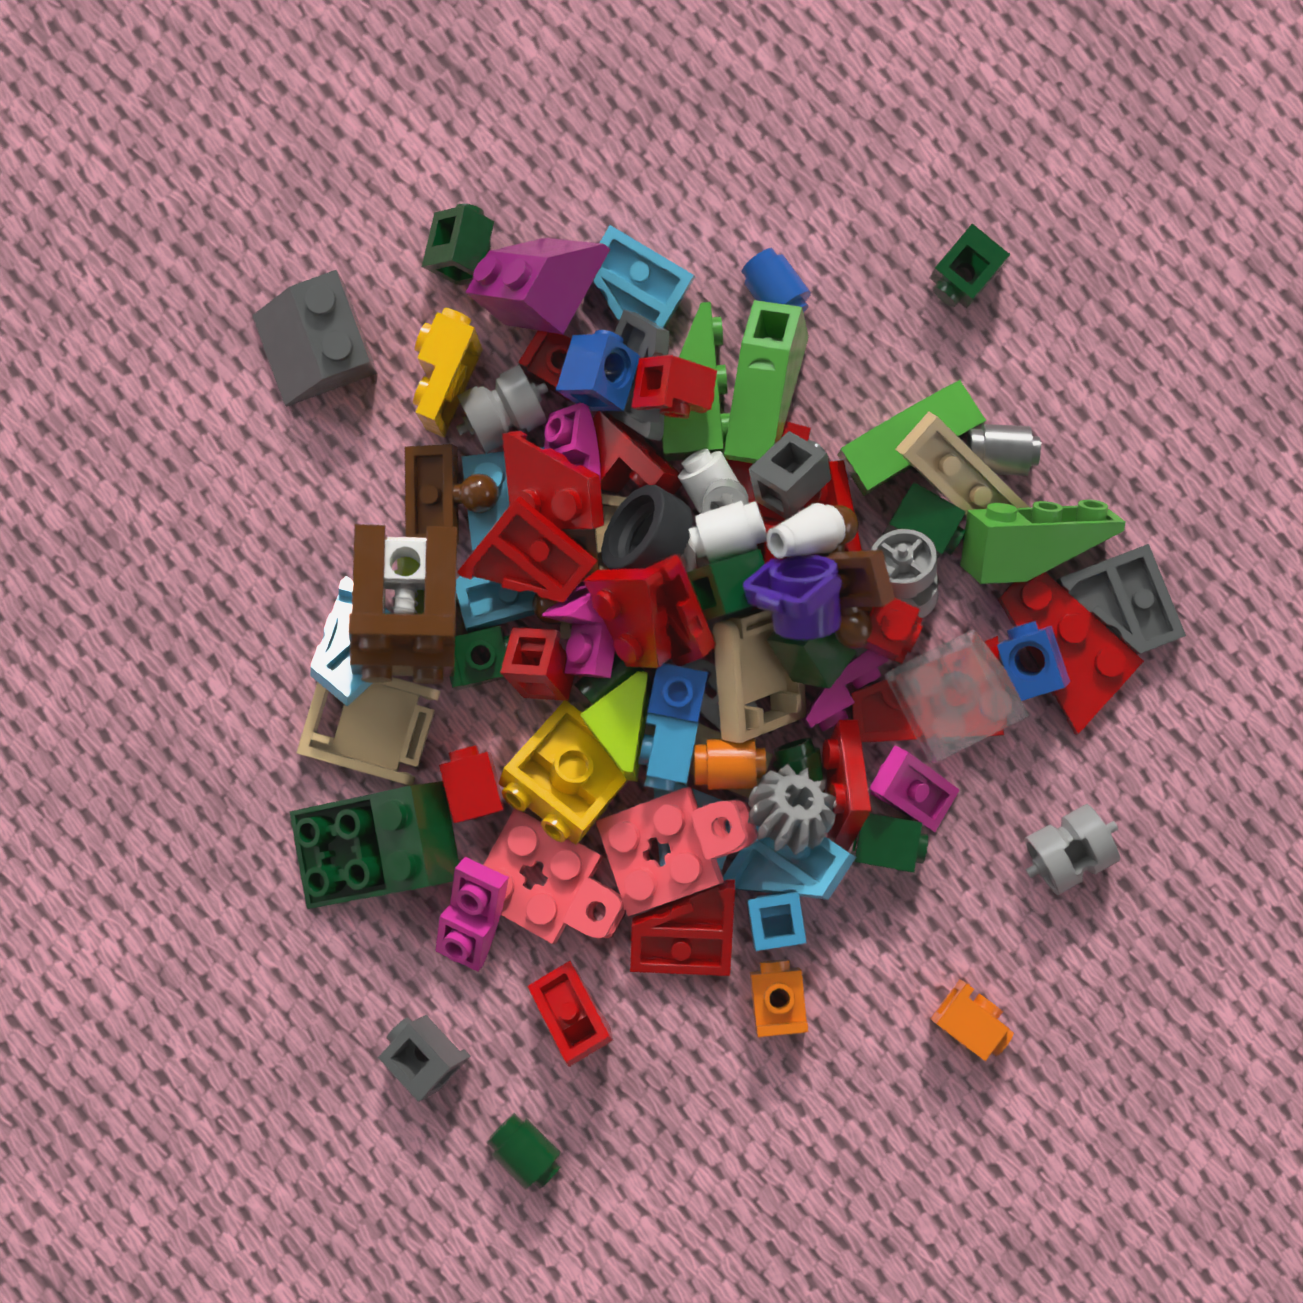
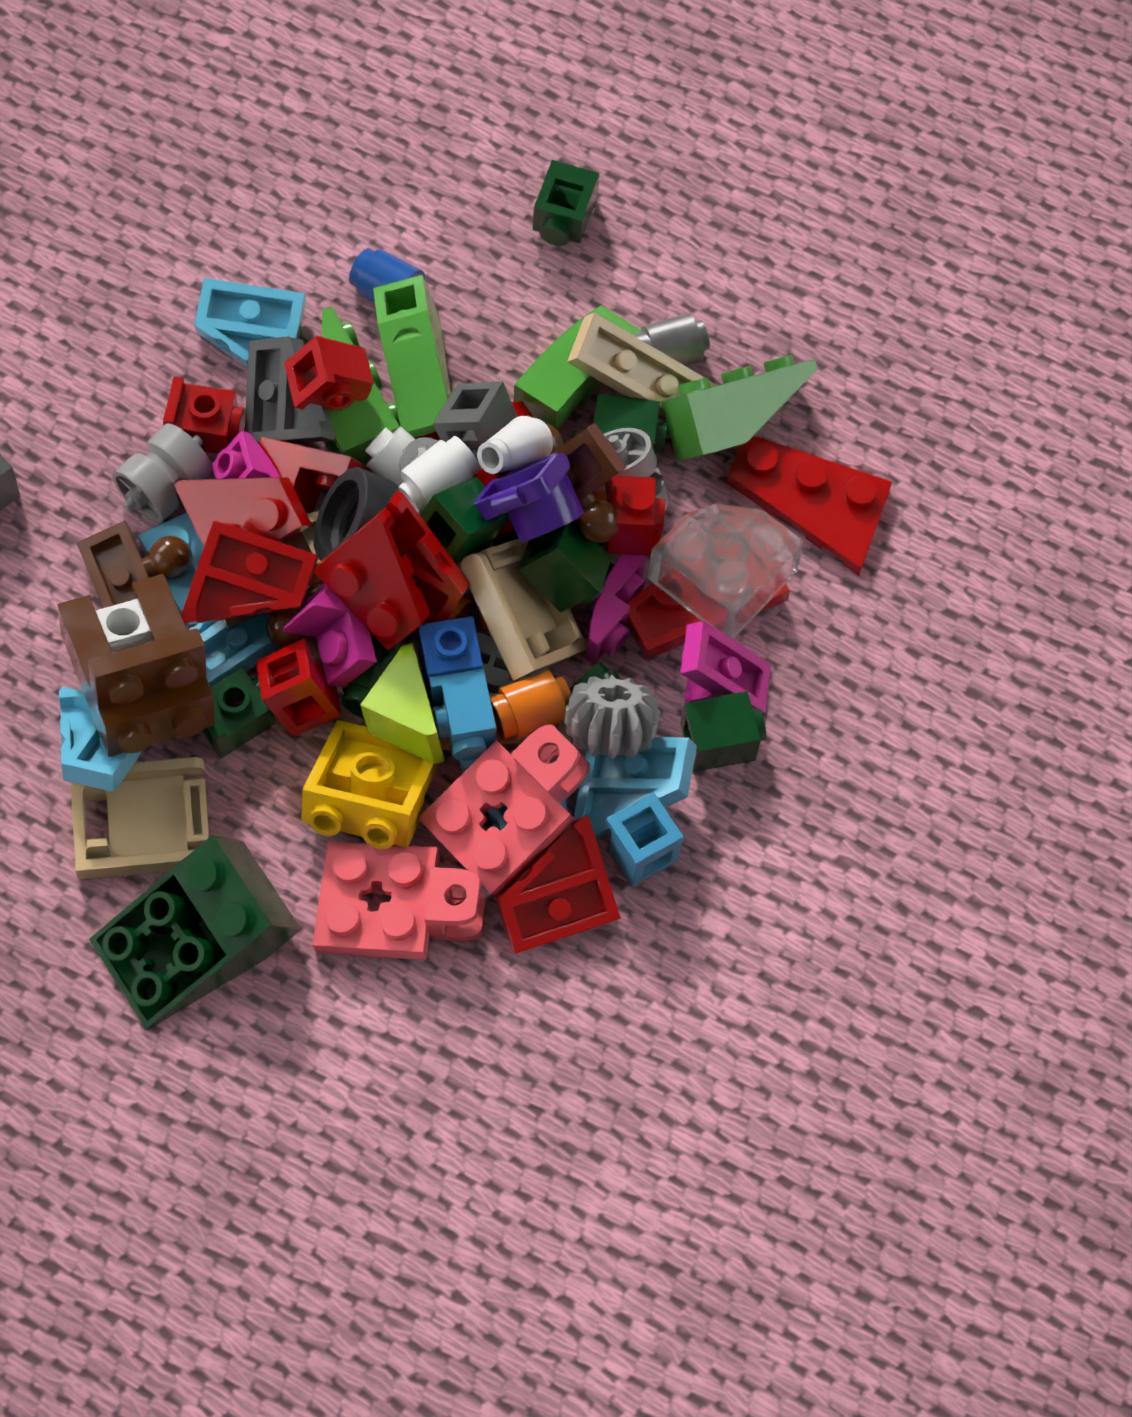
camera: 30 degrees left, 20 degrees down
(414, 1070) = (353, 1128): dark grey brick -> none
(448, 357) = (91, 448): yellow plate -> none
(457, 243) = (61, 346): dark green brick -> none
(471, 784) = (275, 833): red brick -> none
(473, 914) = (327, 956): dark pink slope -> none
(524, 1152) = (480, 1176): dark green brick -> none
(537, 282) = (152, 345): magenta slope -> none
(570, 1013) = (471, 1013): red slope -> none
(598, 371) = (247, 395): blue brick -> none
(778, 1020) = (676, 939): orange brick -> none
(846, 781) = (651, 666): red wing -> none
(973, 1021) = (885, 869): orange brick -> none
(1029, 683) = (810, 515): blue brick -> none
(1075, 847) = (905, 669): light grey wheel -> none
(1128, 599) = (851, 431): dark grey wing -> none

